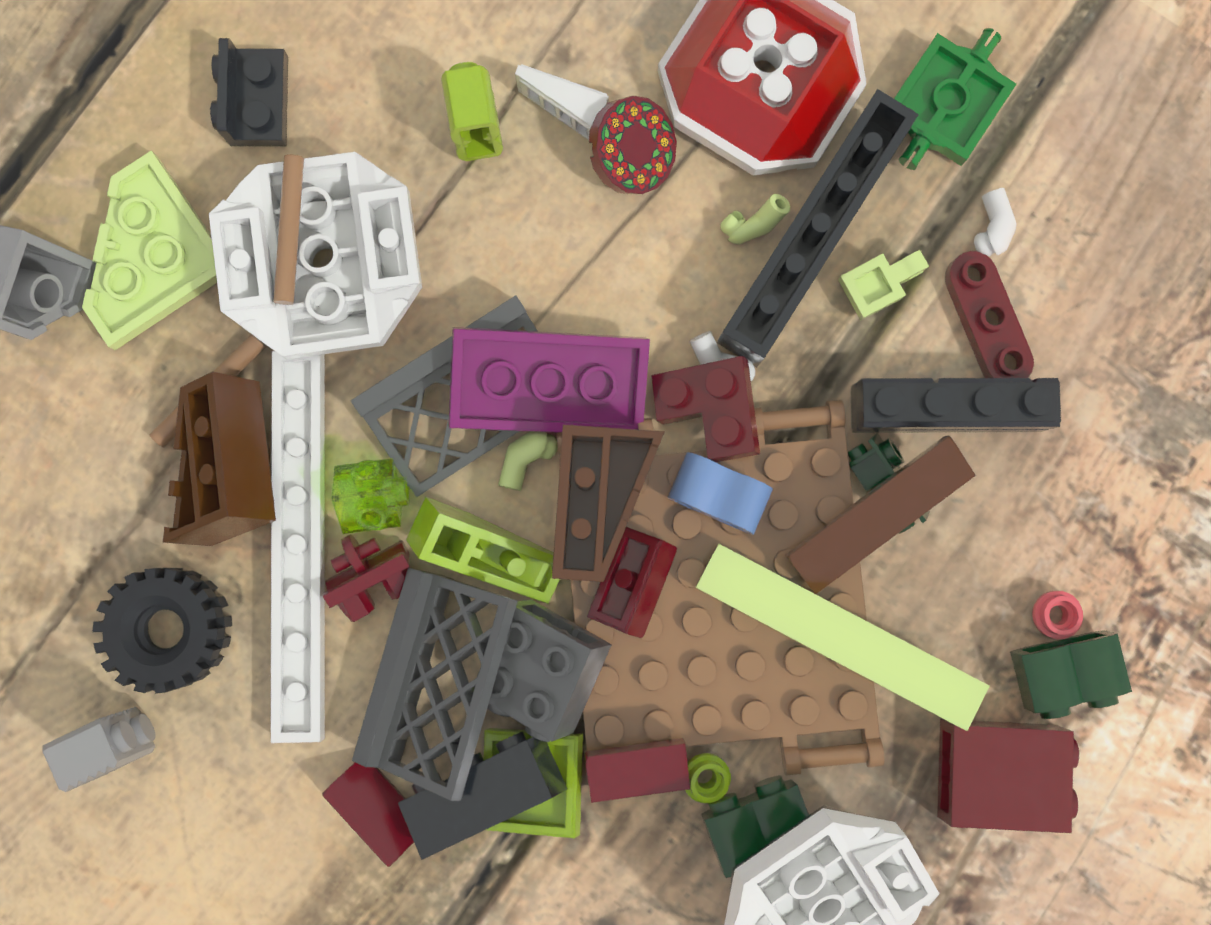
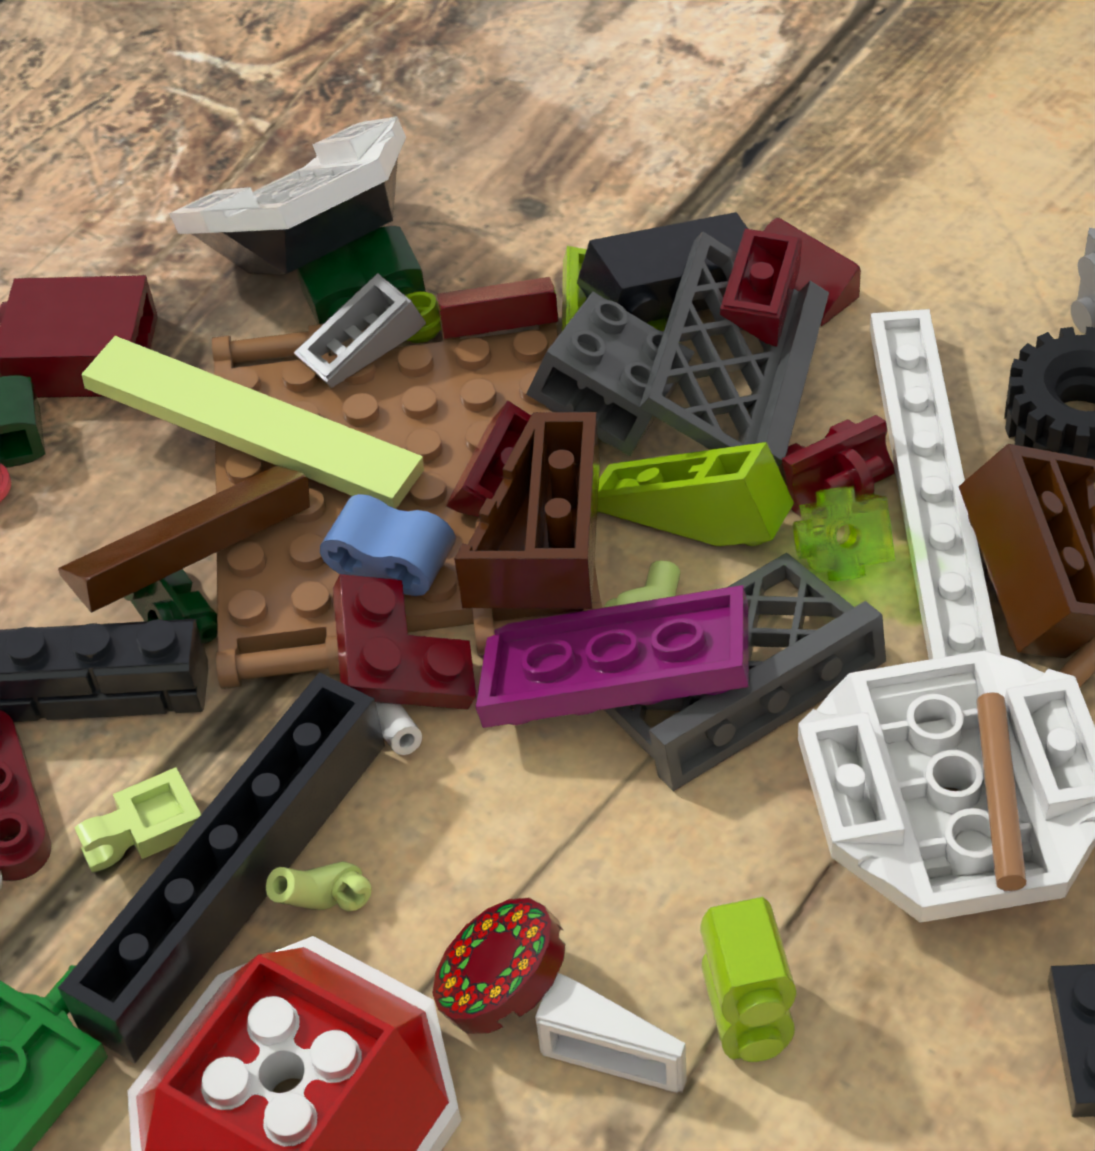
camera: 170 degrees left, 35 degrees down
(405, 754) = (762, 283): none -> dark red slope
(750, 768) = (390, 321): none -> light grey slope

